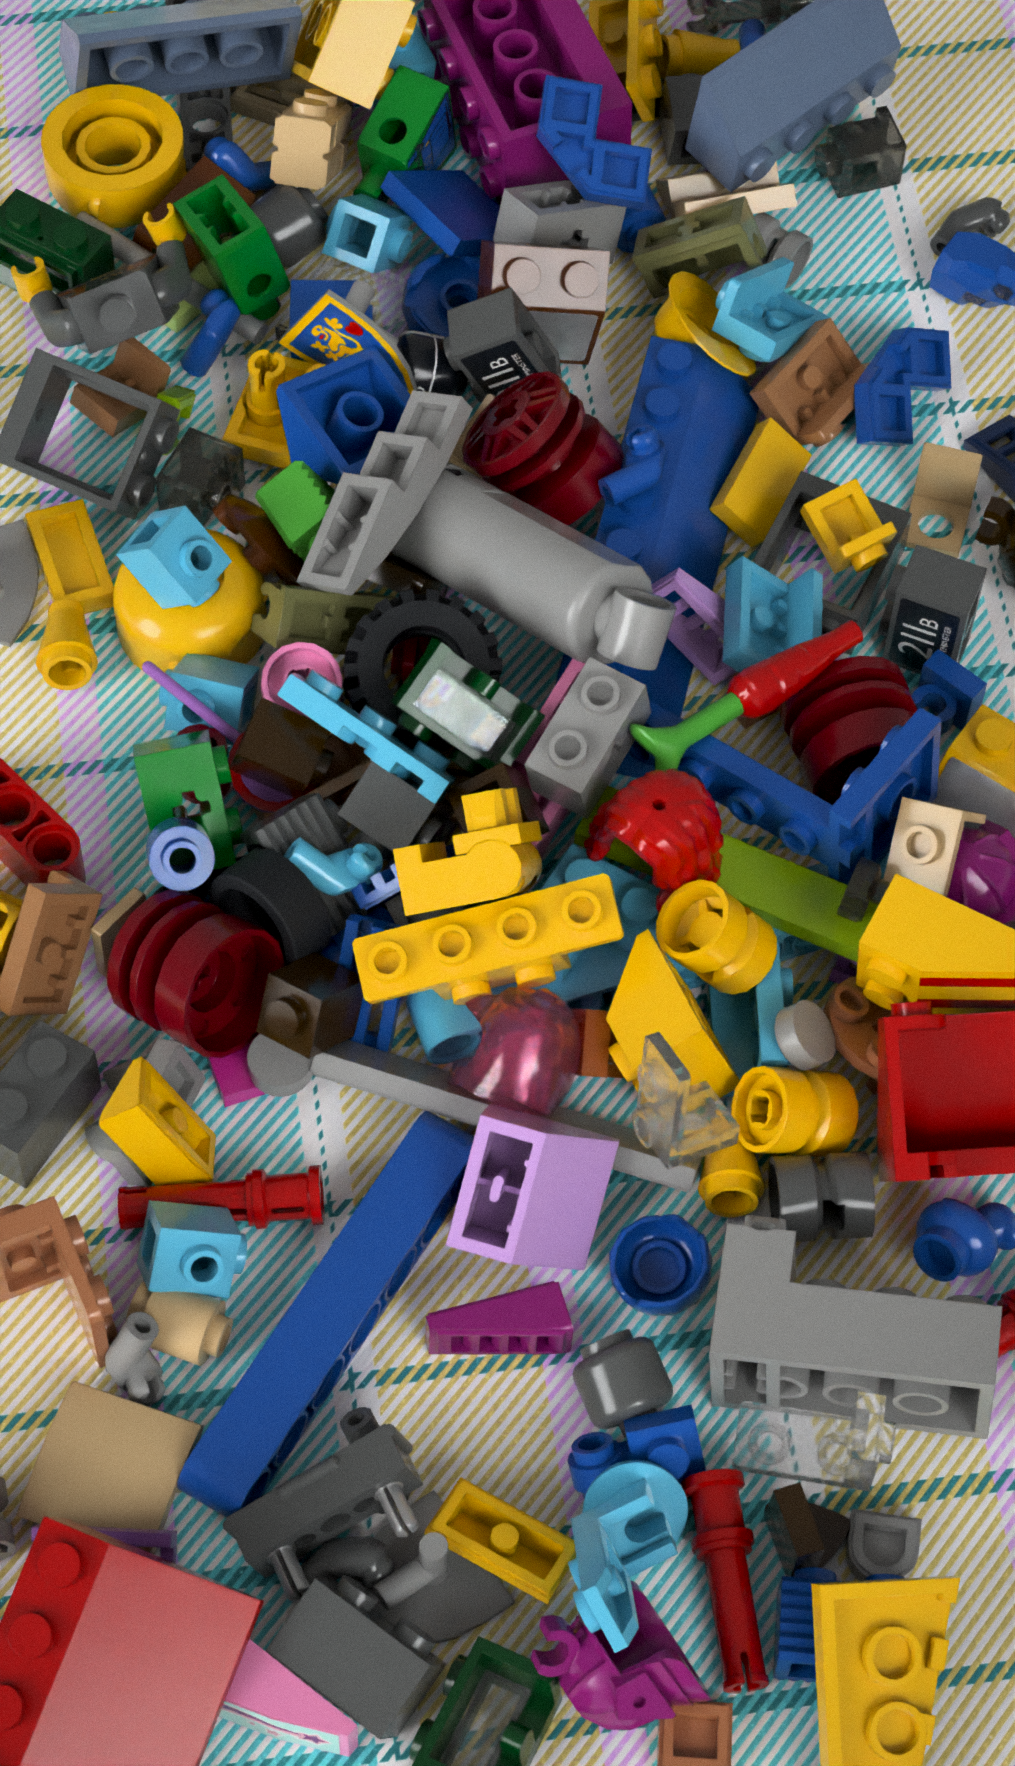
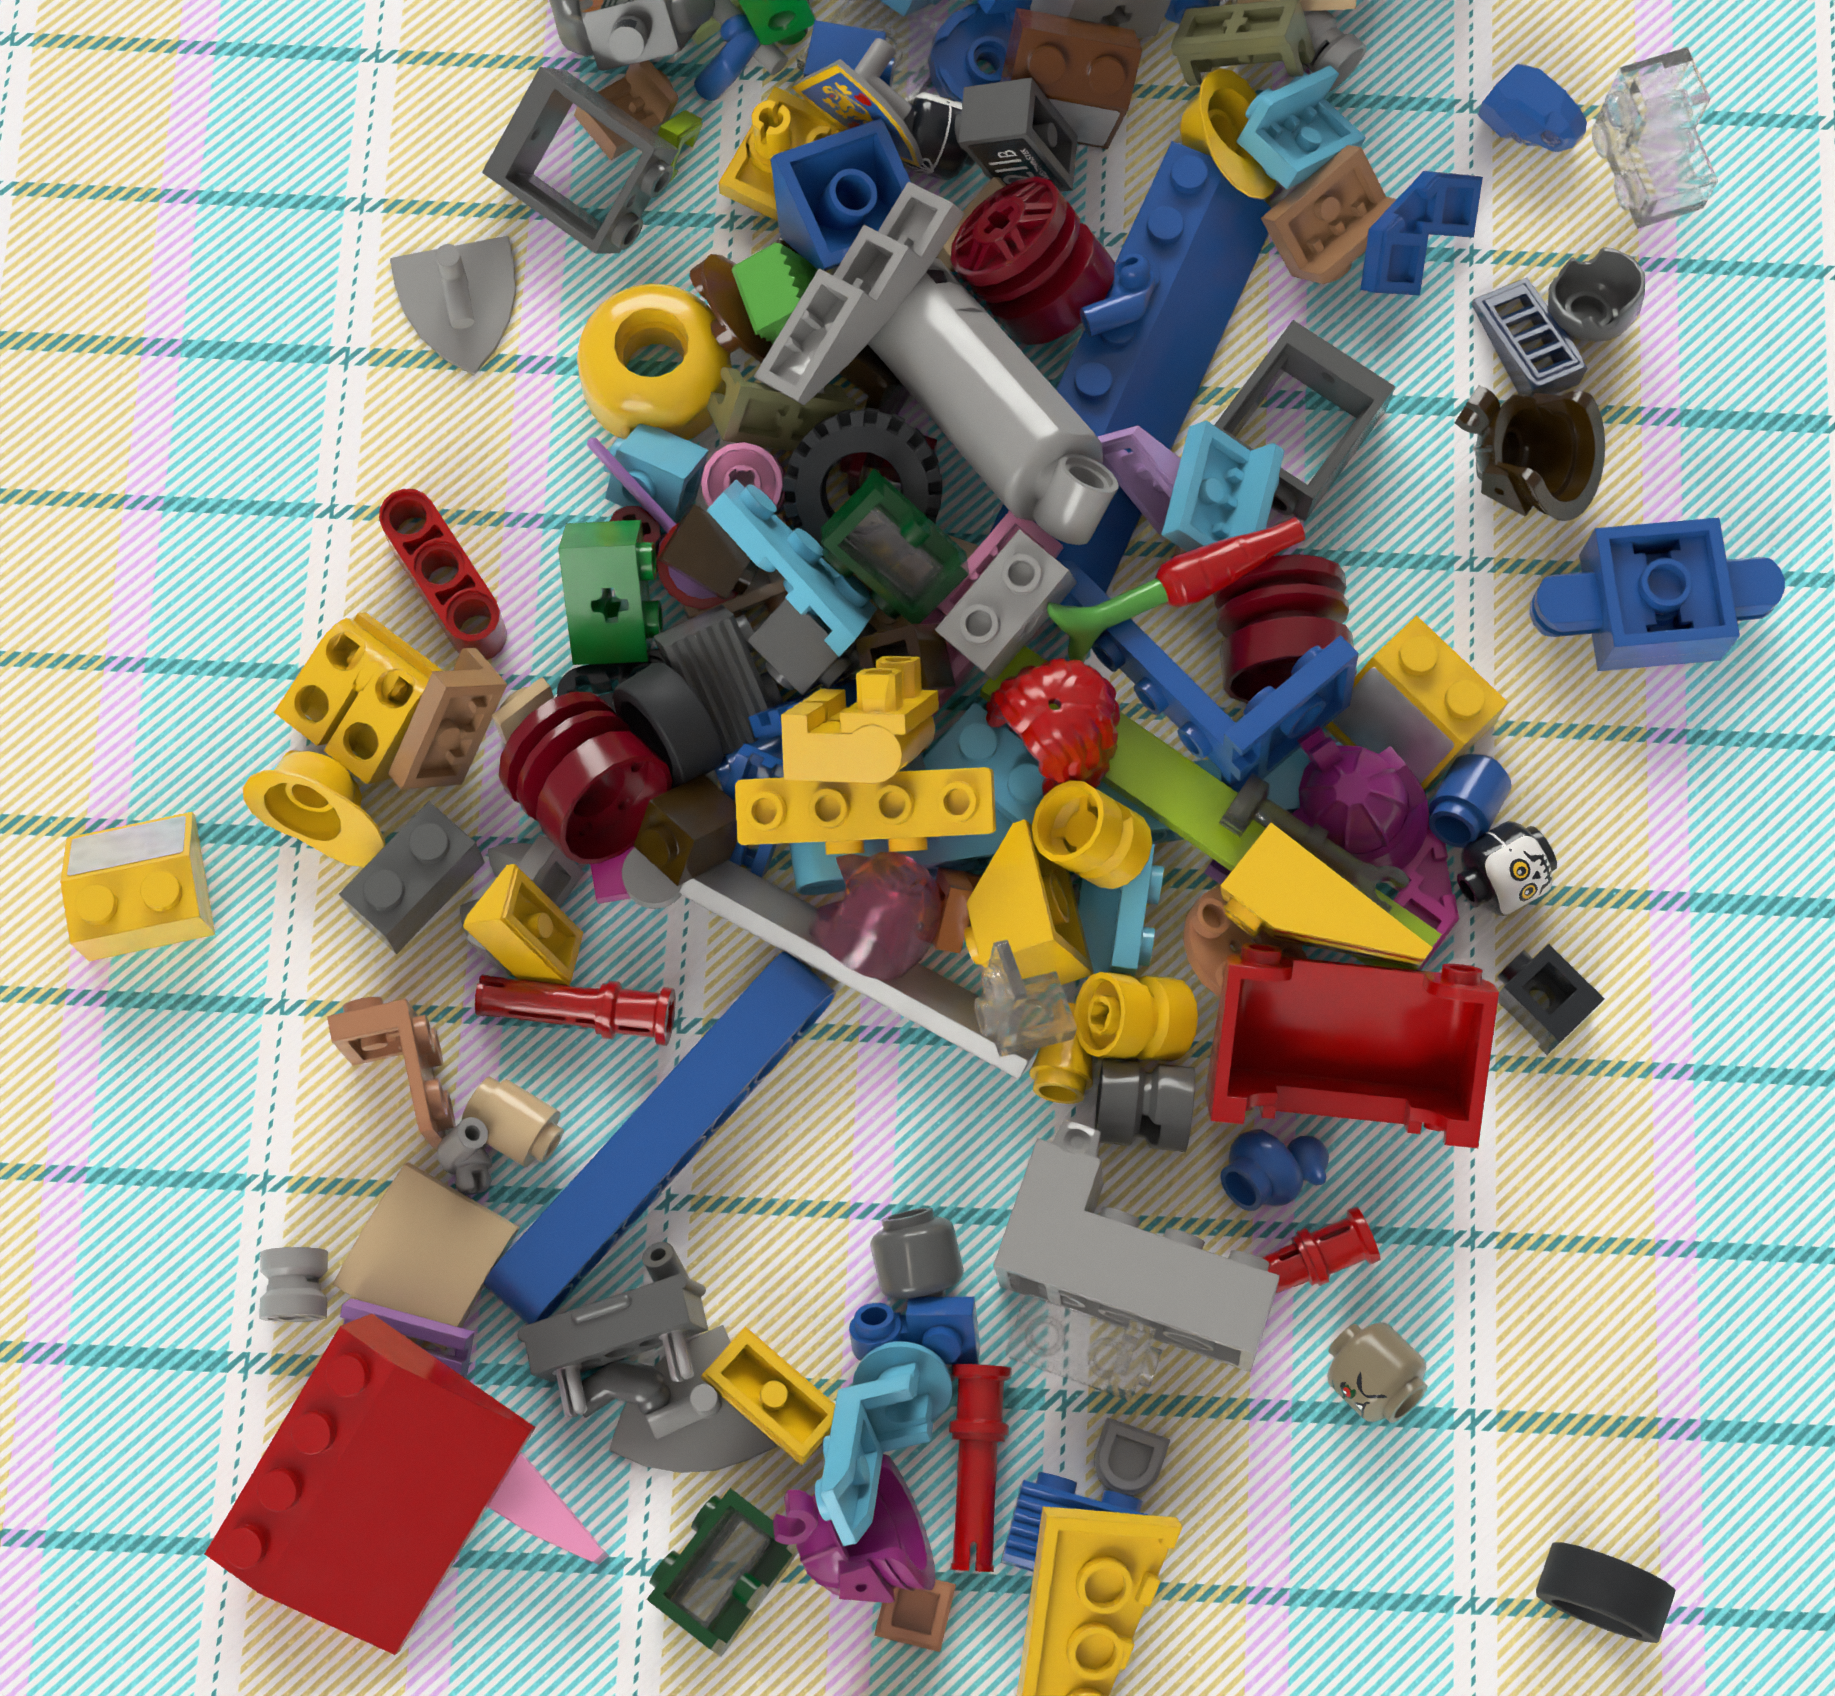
camera: 10 degrees right, 15 degrees up
(66, 648) = (525, 392): yellow cone -> none
(71, 555) = (547, 290): yellow tile -> none
(175, 558) = (636, 334): medium azure brick -> none
(175, 834) = (588, 654): brick -> none
(190, 1249) = (534, 1056): medium azure brick -> none
(200, 474) = (687, 225): clear smoke brick -> none
(338, 871) = (737, 697): medium azure arm -> none
(357, 1655) = (617, 1483): dark grey brick -> none
(510, 1323) = (827, 1179): magenta slope -> none
(532, 1190) = (865, 1055): lavender slope -> none
(660, 1265) = (976, 1146): blue hair -> none
(760, 482) = (1253, 317): yellow tile -> none
(803, 1531) = (1059, 1434): dark brown tile -> none
(804, 1035) = (1159, 947): light grey tile -> none
(848, 528) = (1323, 398): yellow bracket -> none
(927, 843) = (1323, 767): tan bracket -> none
(930, 608) = (1389, 502): dark grey brick -> none
(943, 488) = (1437, 352): tan bracket -> none
(949, 691) = (1392, 585): blue tile -> none
(980, 213) = (1536, 40): dark grey arm -> none

